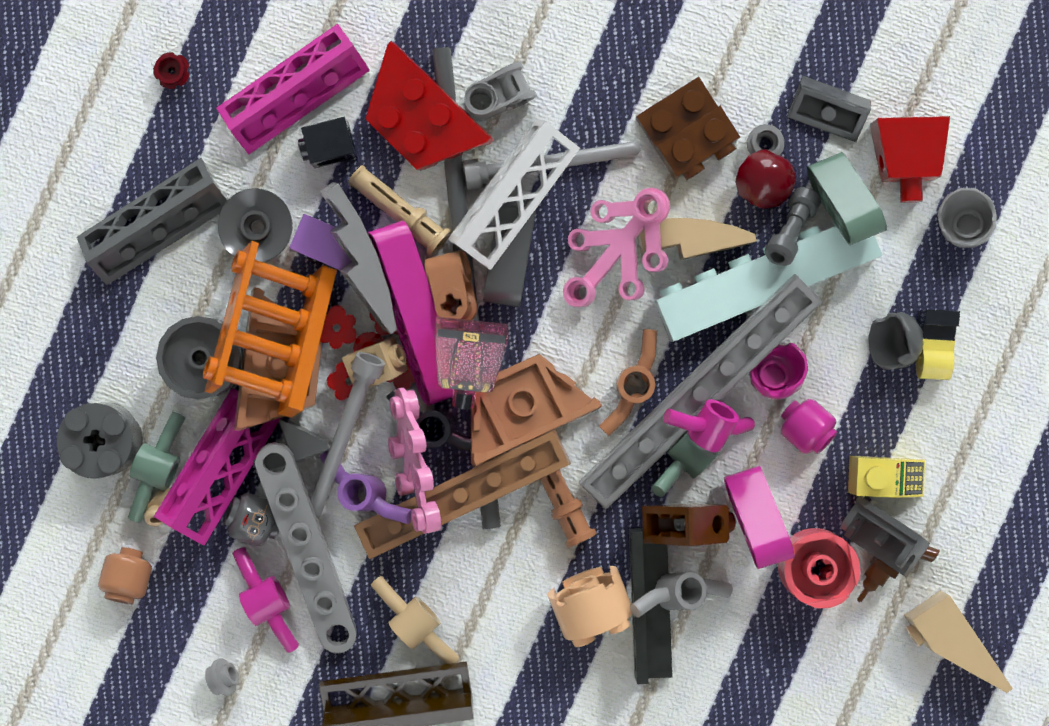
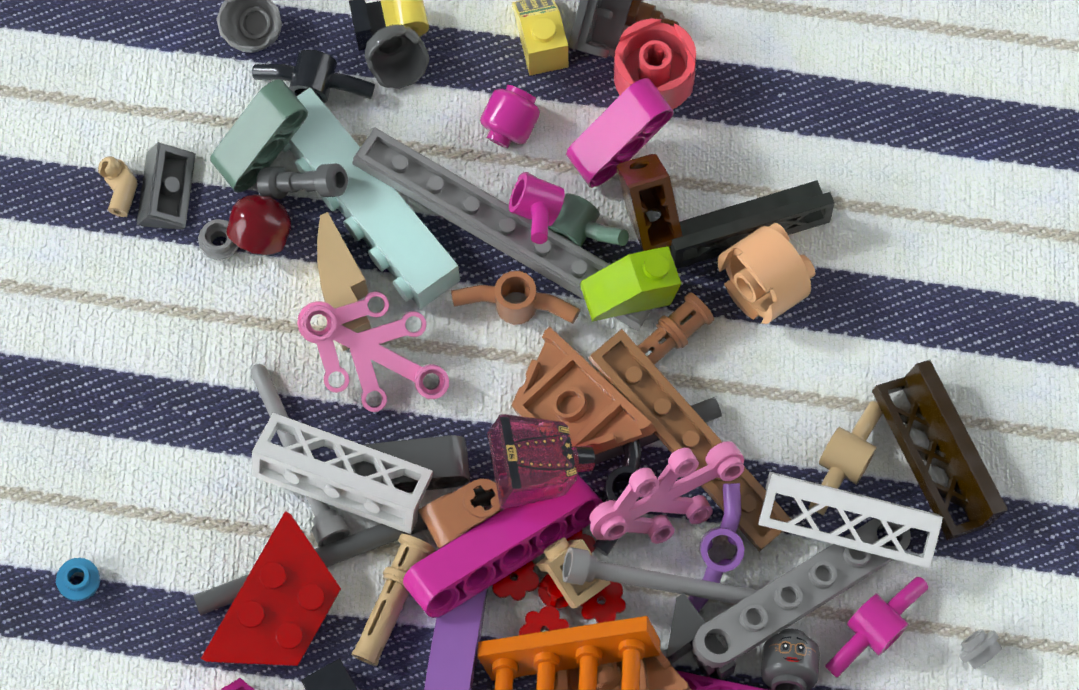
camera: 100 degrees left, 20 degrees down
(364, 270) = (466, 605): light grey slope -> none
(364, 613) = (854, 503): none -> white fence
(500, 91) = (228, 522): light grey piece -> none
(612, 485) = (632, 284): none -> lime slope
(668, 593) = (724, 190): light grey piece -> none
(688, 129) = (224, 319): reddish brown plate -> none
(780, 372) = (461, 153): dark pink hair -> none
(845, 70) = (121, 182): none -> tan arm
(898, 262) = (314, 71): none -> black piece
(910, 152) = (193, 94): red torso -> none

